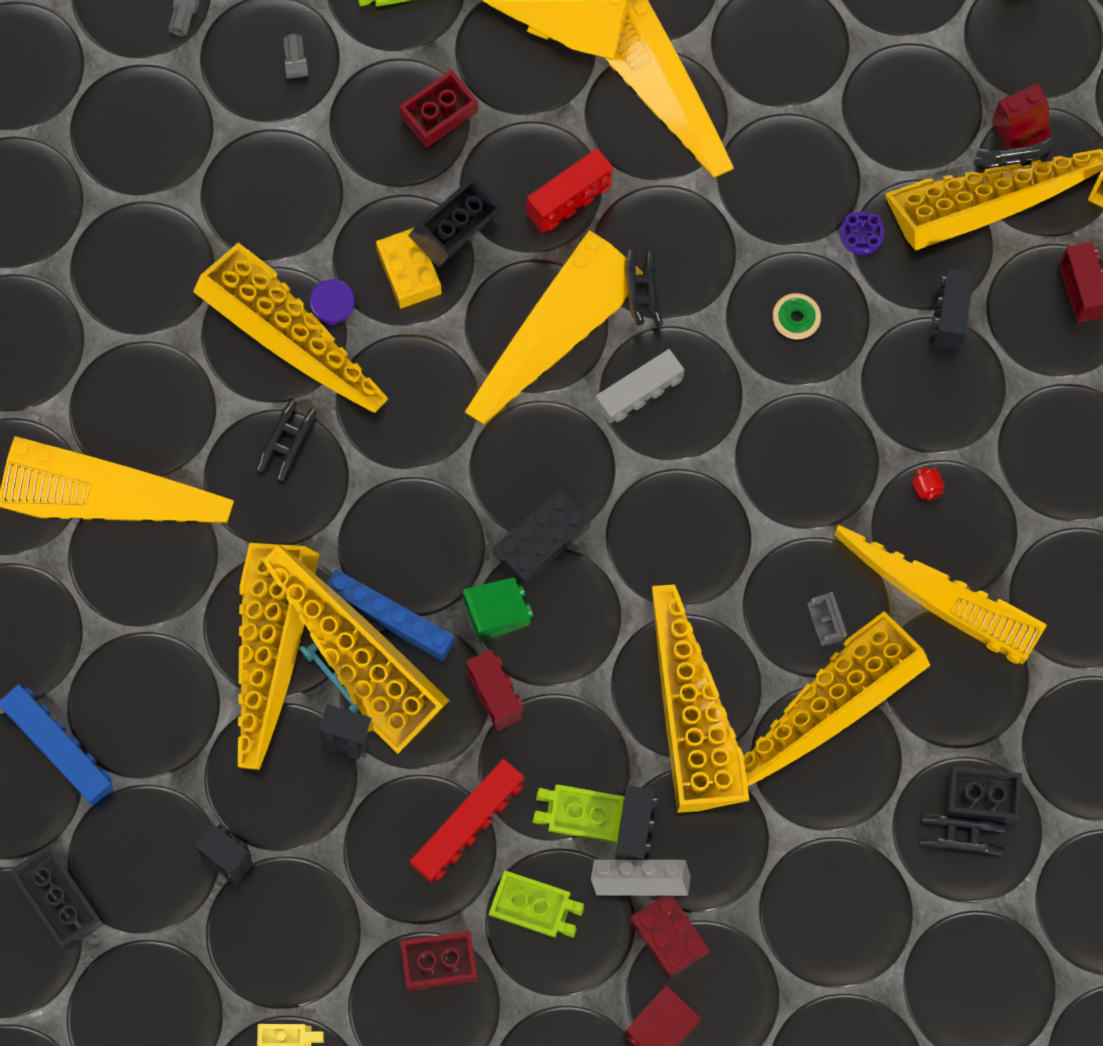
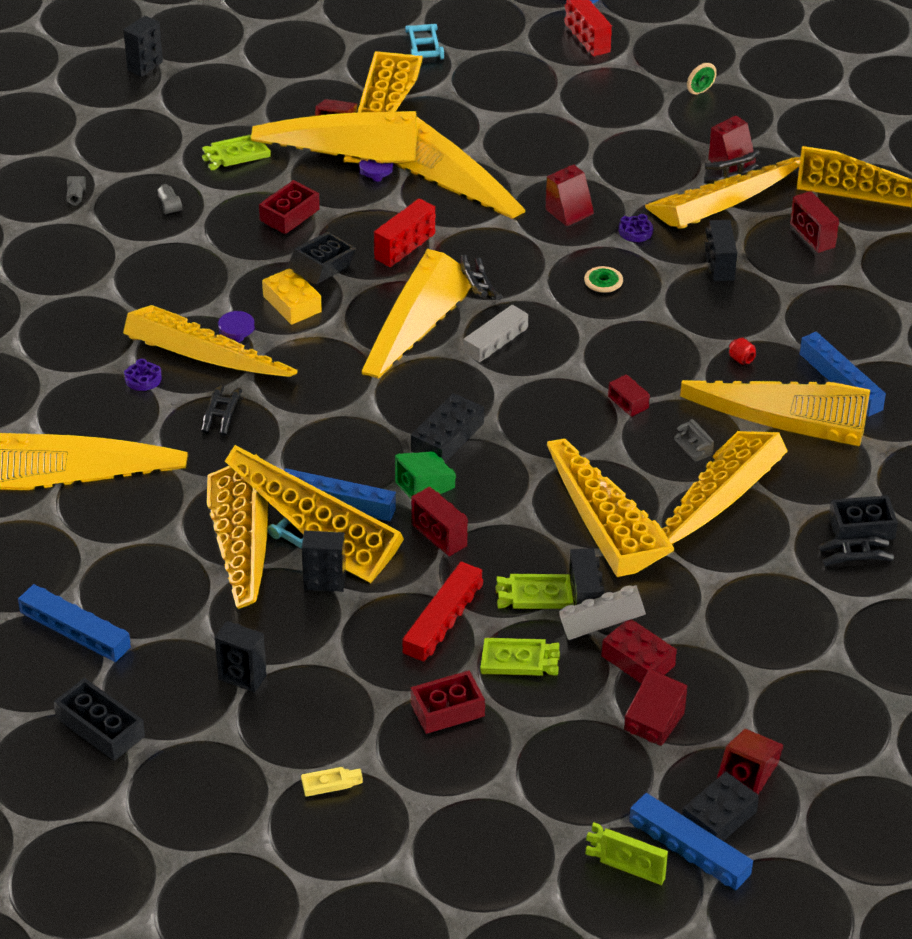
camera: 10 degrees left, 30 degrees down
(205, 361) = (142, 375): none -> dark purple tile
(562, 56) = (375, 170): none -> dark purple tile
(771, 527) = (628, 395): none -> dark red brick
(790, 169) = (568, 195): none -> dark red slope
(1036, 549) = (839, 369): none -> blue brick

